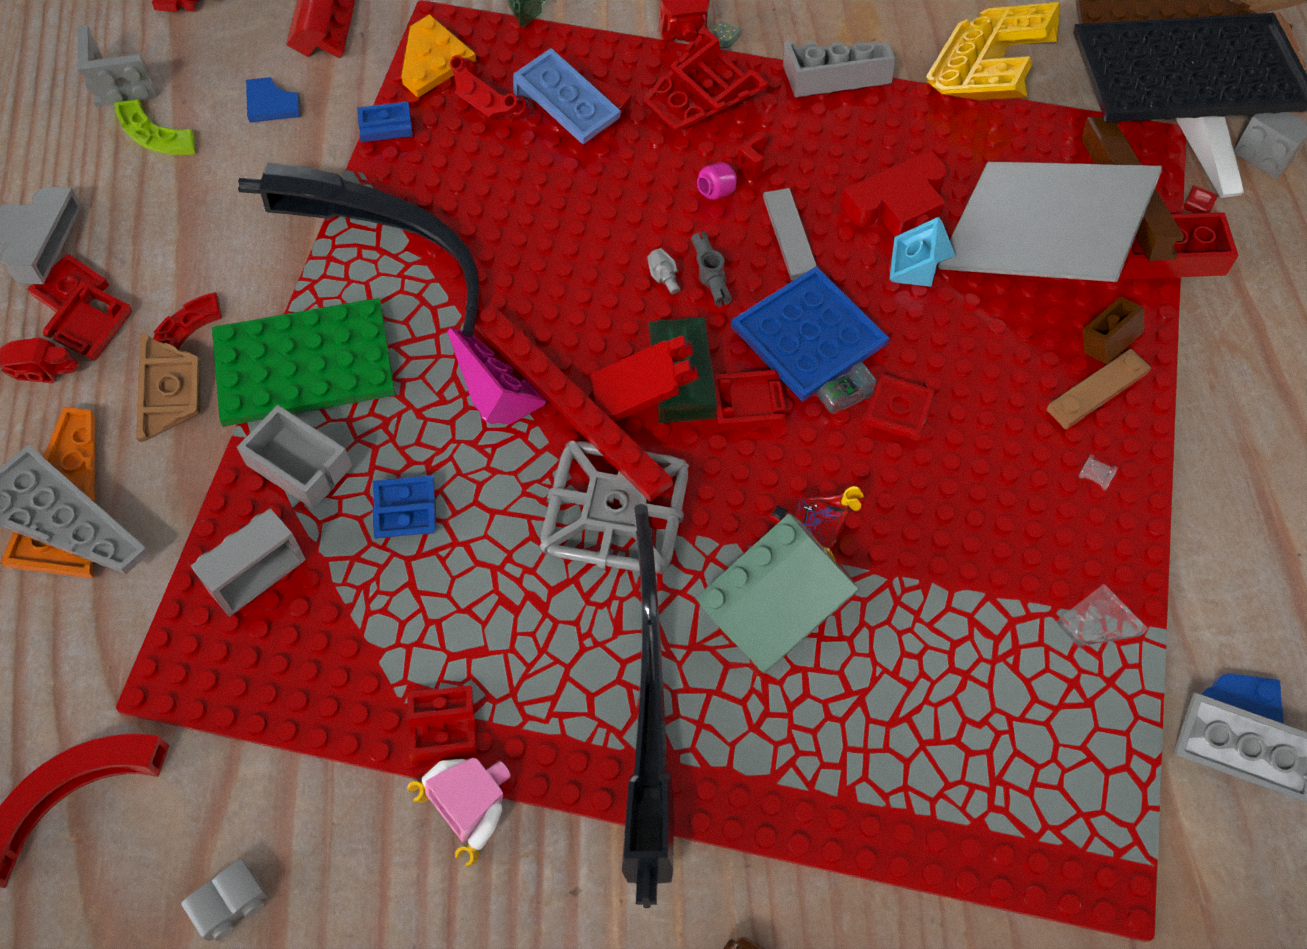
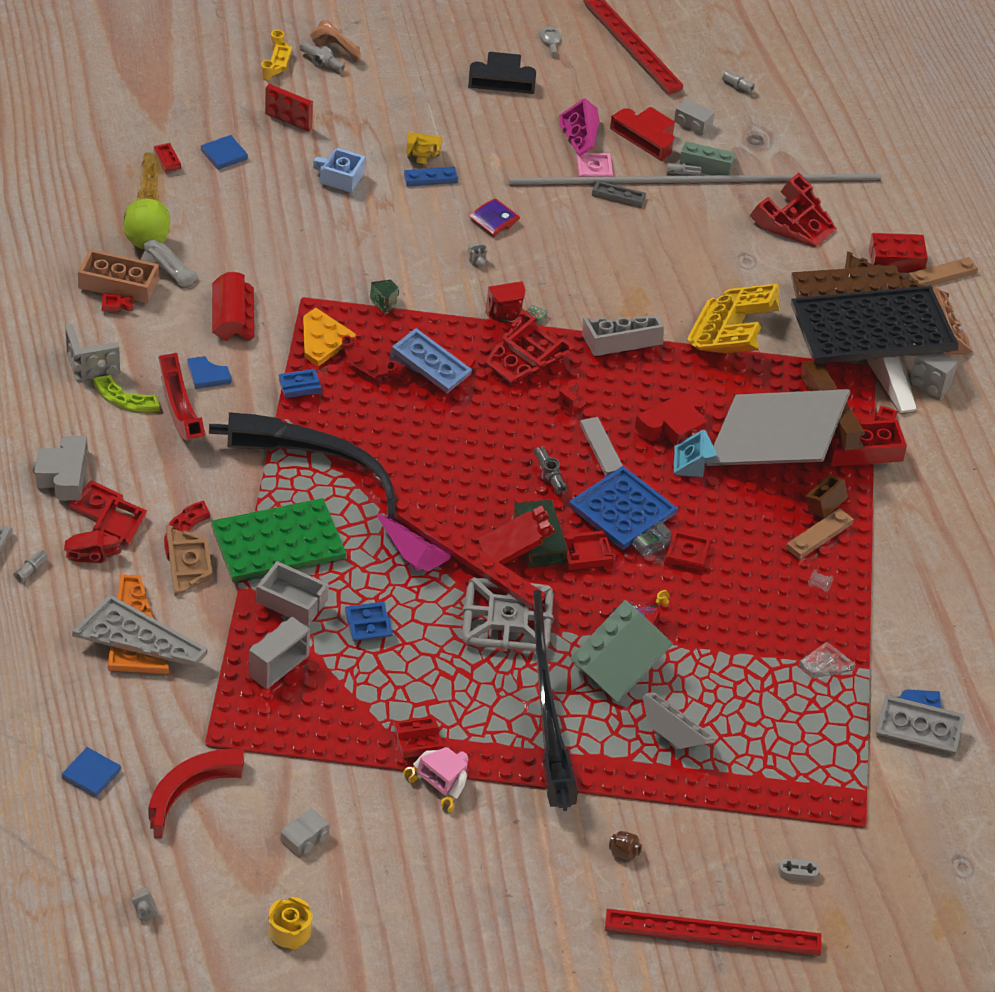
camera: 10 degrees left, 15 degrees down
(218, 168) = (183, 416): none -> red arch
(663, 269) = (517, 472): light grey piece -> none
(716, 181) = (546, 414): dark pink head -> none
(853, 731) = (673, 724): none -> light grey wedge

